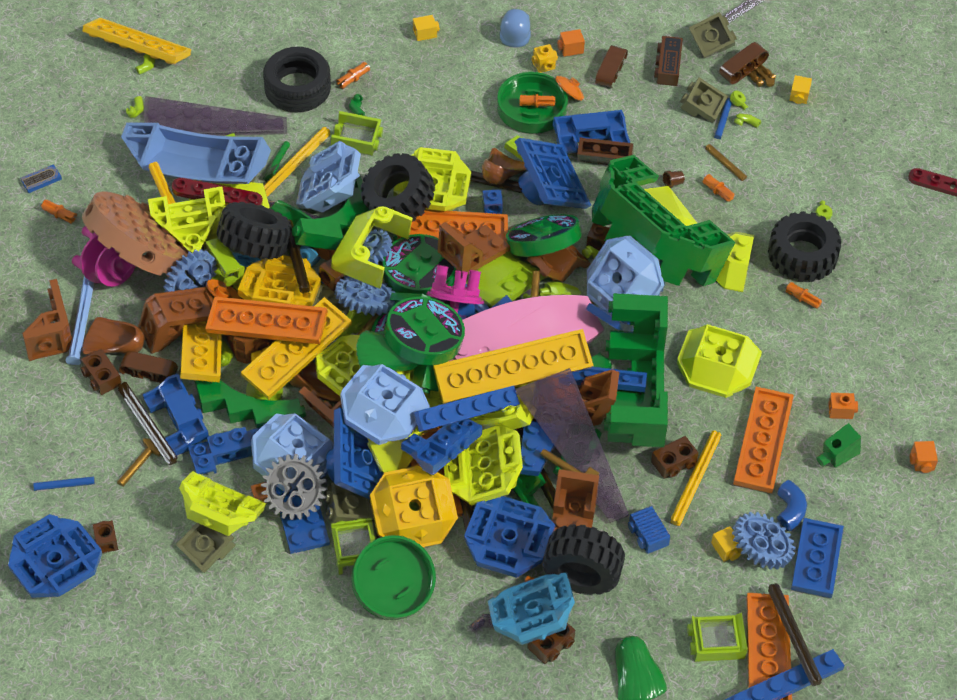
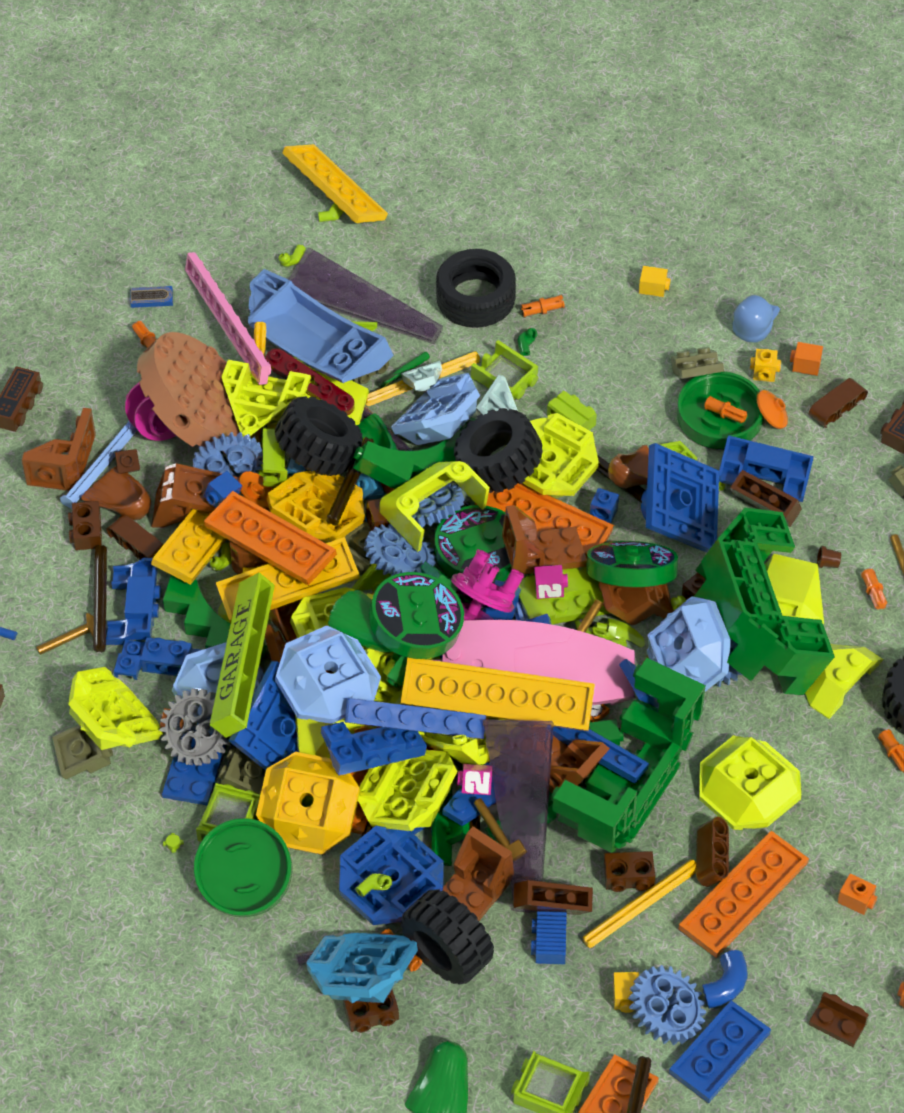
camera: 30 degrees right, 0 degrees up
(104, 310) = (127, 461): none -> reddish brown bracket
(120, 170) = (227, 318): none -> bright pink plate
(203, 300) = (220, 488): none -> blue brick
(299, 159) = (423, 377): none -> light aqua wing
(305, 416) = (242, 655): none -> lime brick
(321, 584) = (173, 842): none -> lime piece
(368, 153) = (497, 397): none -> light aqua wing
(421, 139) = (572, 409): none -> lime brick
(494, 271) = (550, 581): none -> dark pink brick
(495, 75) = (697, 363): none -> olive plate
(501, 544) = (374, 882): none -> lime arm
(535, 435) = (475, 779): none -> brick
(638, 498) = (553, 897): none -> reddish brown brick
(725, 418) = (712, 851): none -> reddish brown beam
(840, 447) = (821, 940): green torso -> none
(883, 498) = (839, 1019): none -> reddish brown bracket

